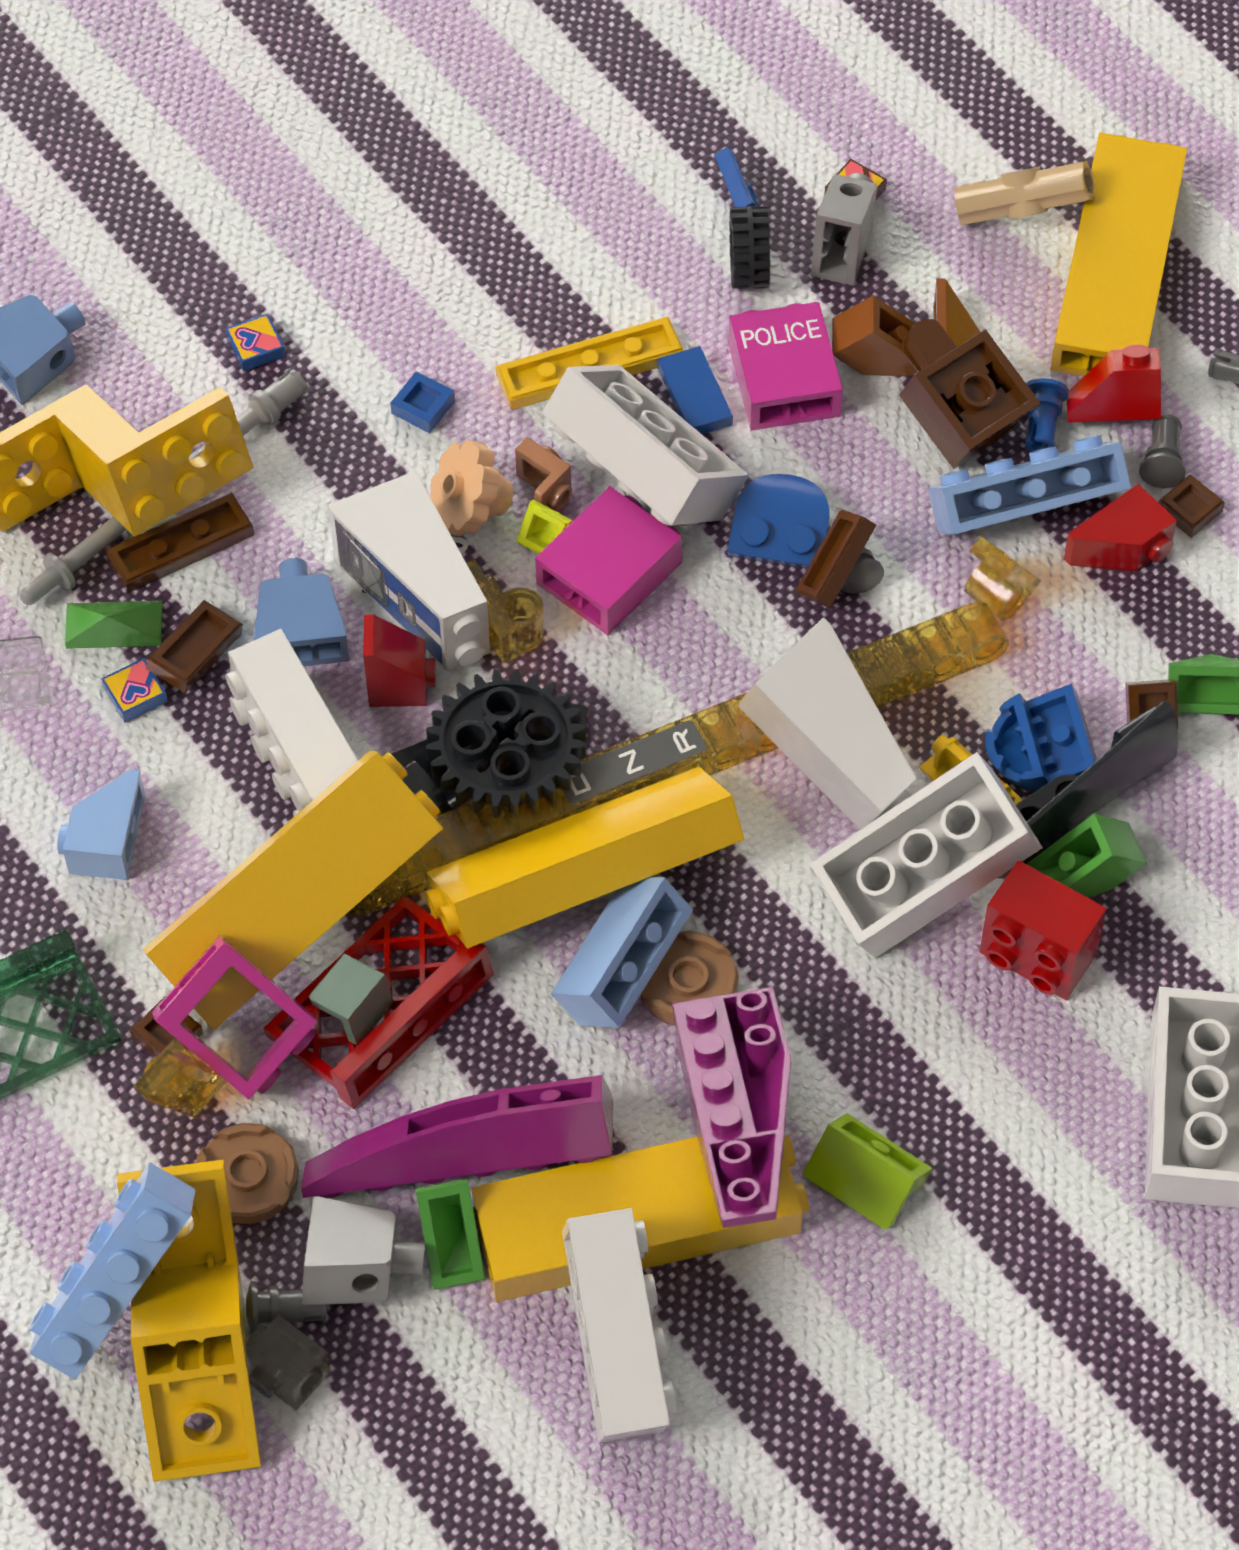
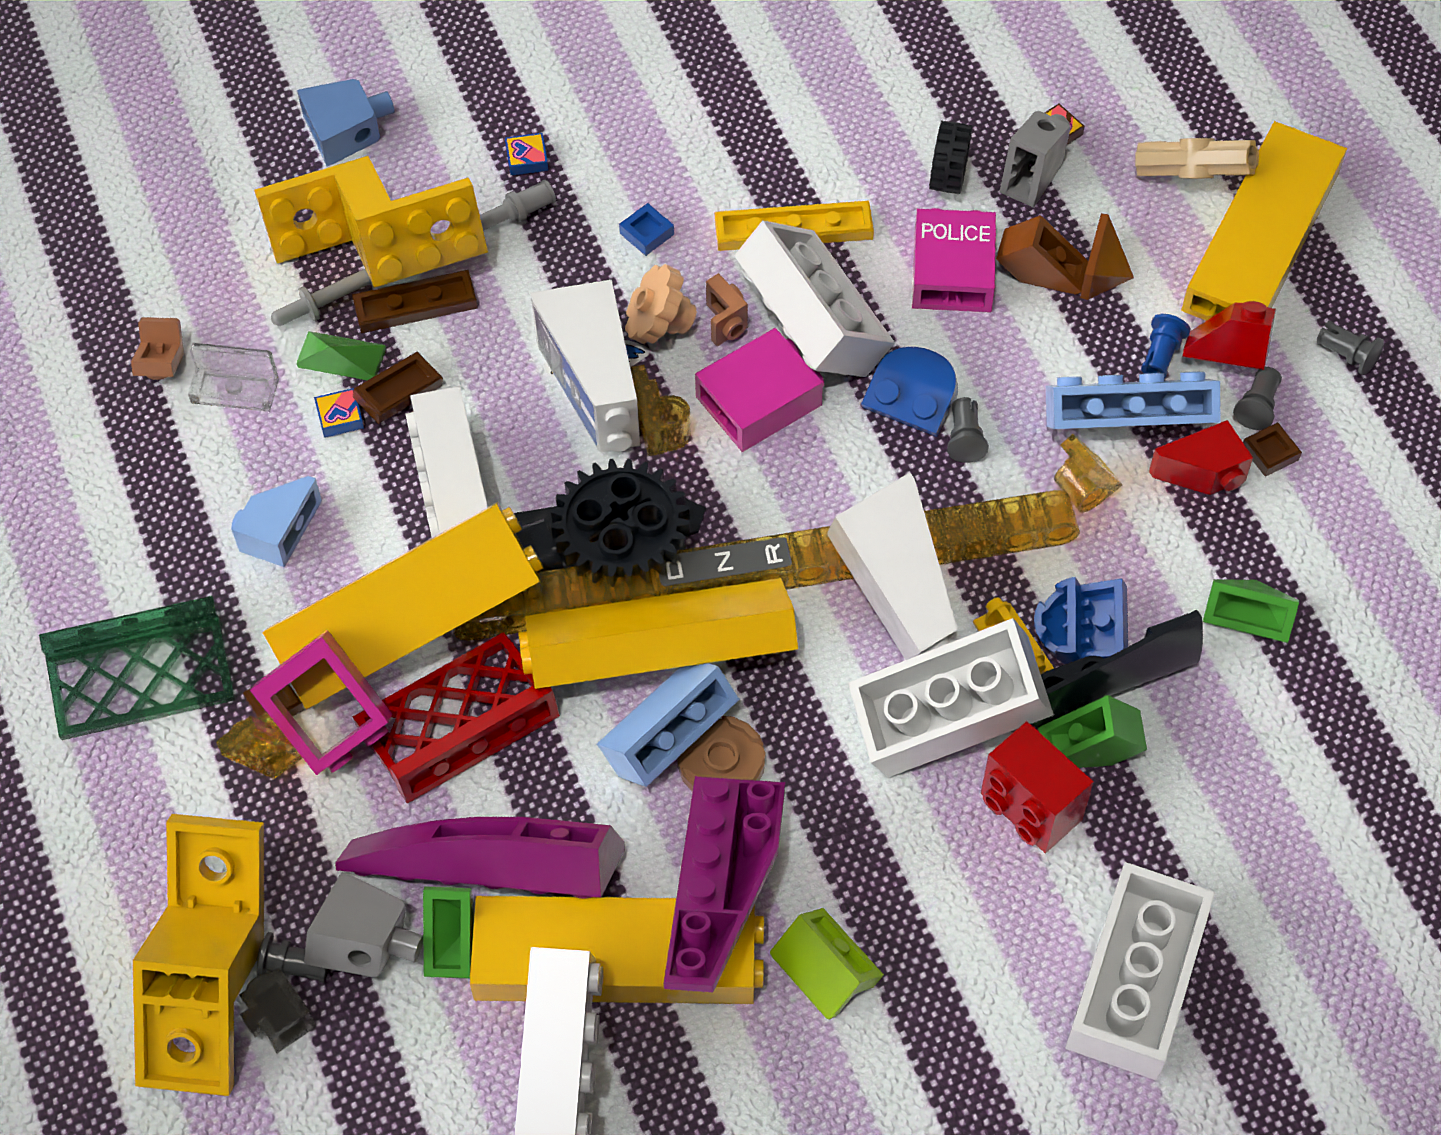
camera: 15 degrees right, 0 degrees up
(112, 1270) = (146, 895): light blue brick -> none
(258, 1170) = (302, 837): medium nougat tile -> none
(305, 612) = (490, 381): medium blue torso -> none
(353, 995) = (427, 708): sand green panel -> none
(395, 665) = (552, 436): red slope -> none
(541, 526) = (710, 348): neon yellow slope -> none
(695, 390) = (873, 266): blue tile -> none
(741, 193) = (954, 100): blue tile -> none
(835, 558) = (948, 427): reddish brown tile -> none
(963, 393) = (1097, 311): reddish brown brick -> none
(1145, 694) = (1186, 601): reddish brown tile -> none

